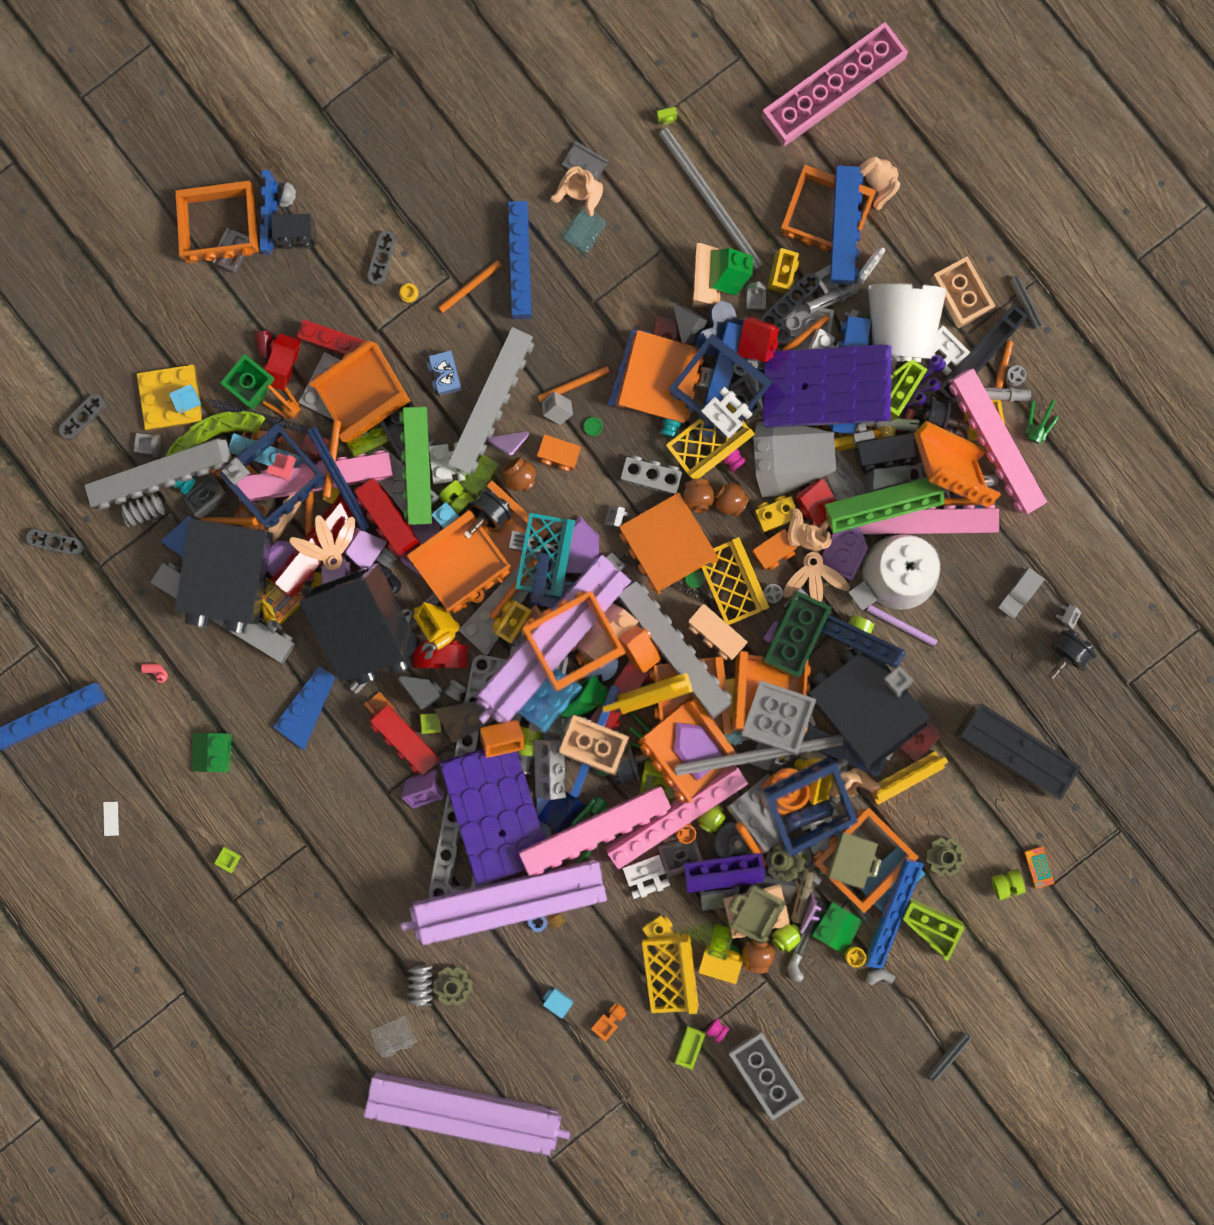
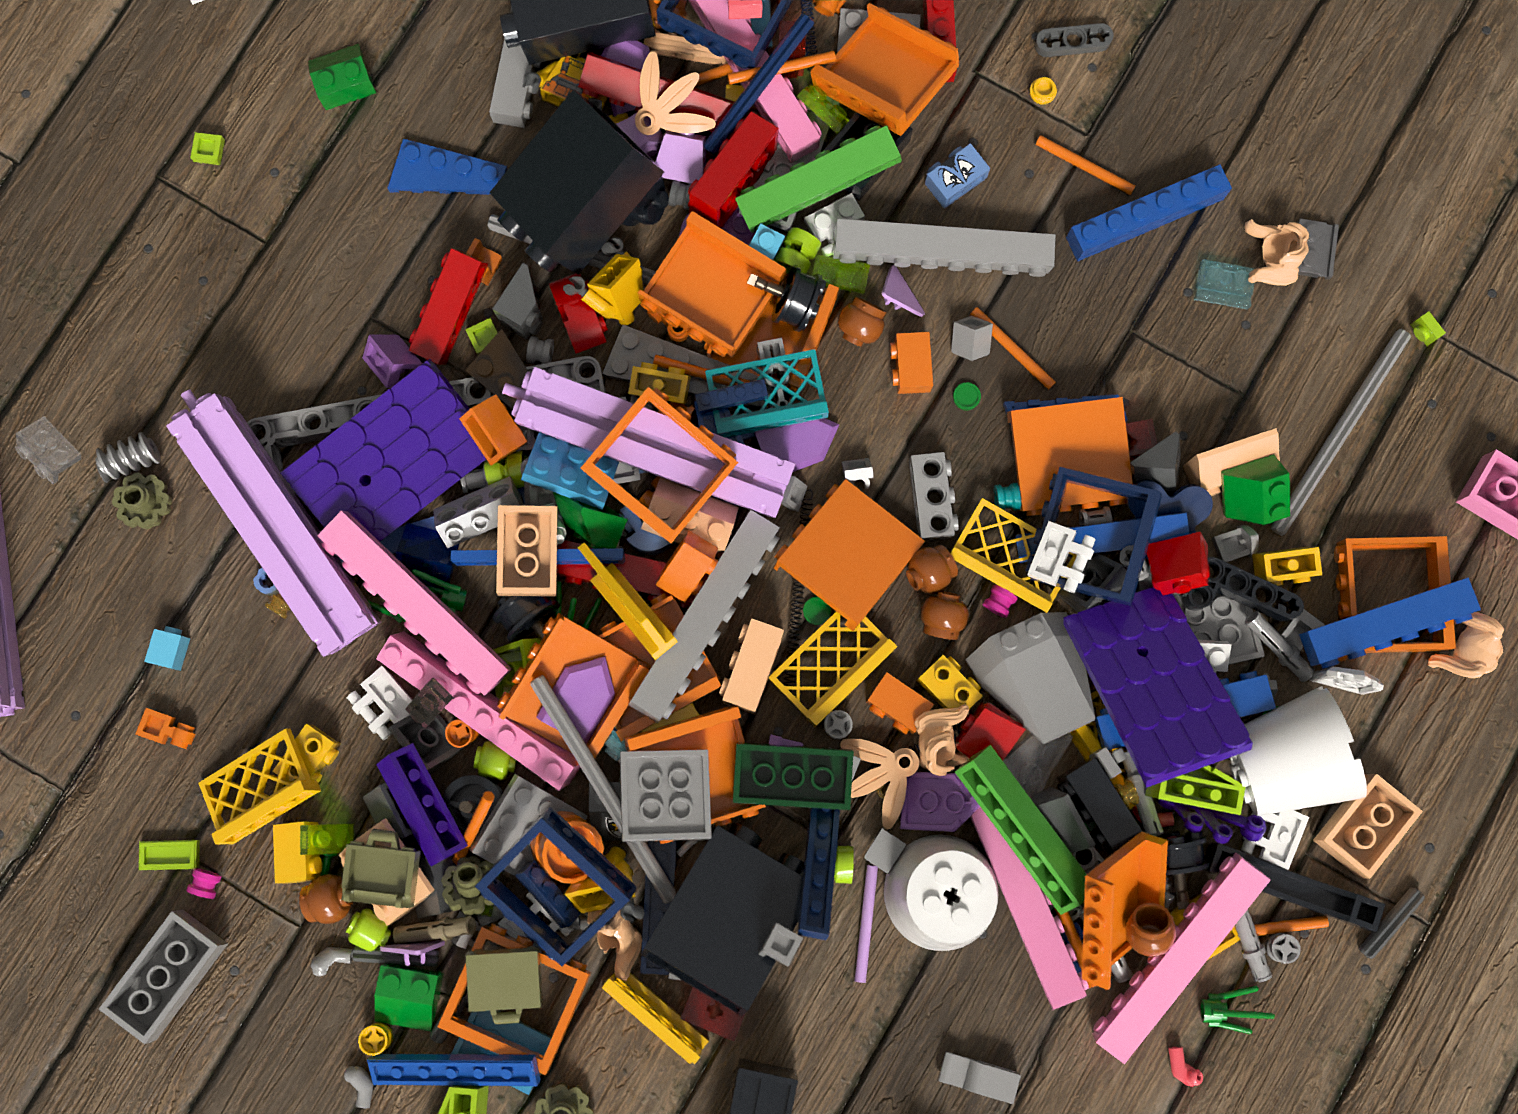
camera: 65 degrees right, 5 degrees down
(661, 845) = (429, 703): none -> clear smoke plate
(805, 334) = (1217, 631): orange bar -> none
(974, 453) = (1150, 930): none -> dark orange piece
(1063, 468) = (1182, 1070): none -> coral arm

